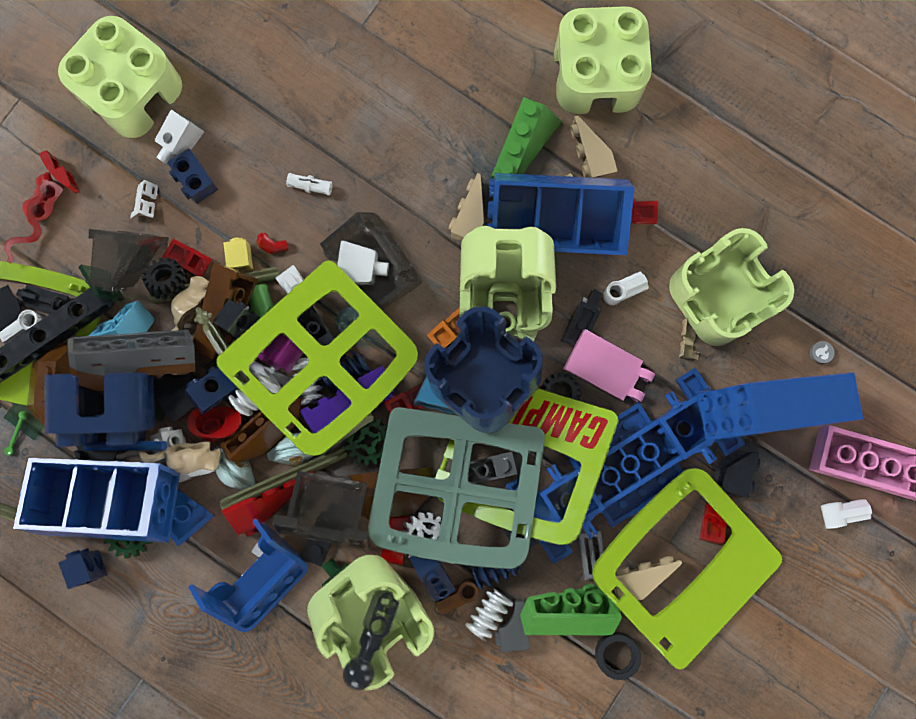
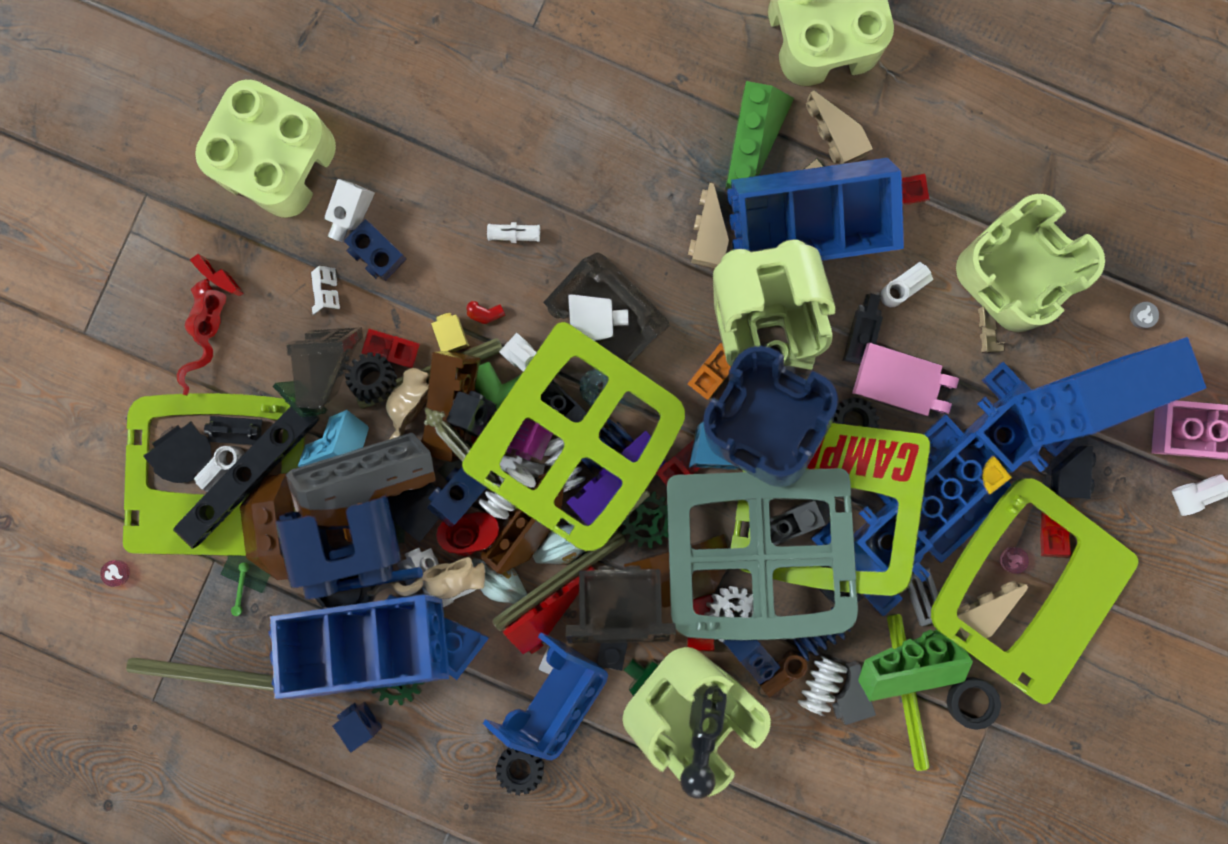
camera: 10 degrees left, 5 degrees up
(208, 647) = (512, 783): none -> black tyre
(562, 646) = (910, 702): none -> lime axle
(668, 459) = (994, 475): none -> yellow tile
(675, 538) = (1014, 560): none -> clear pink tile

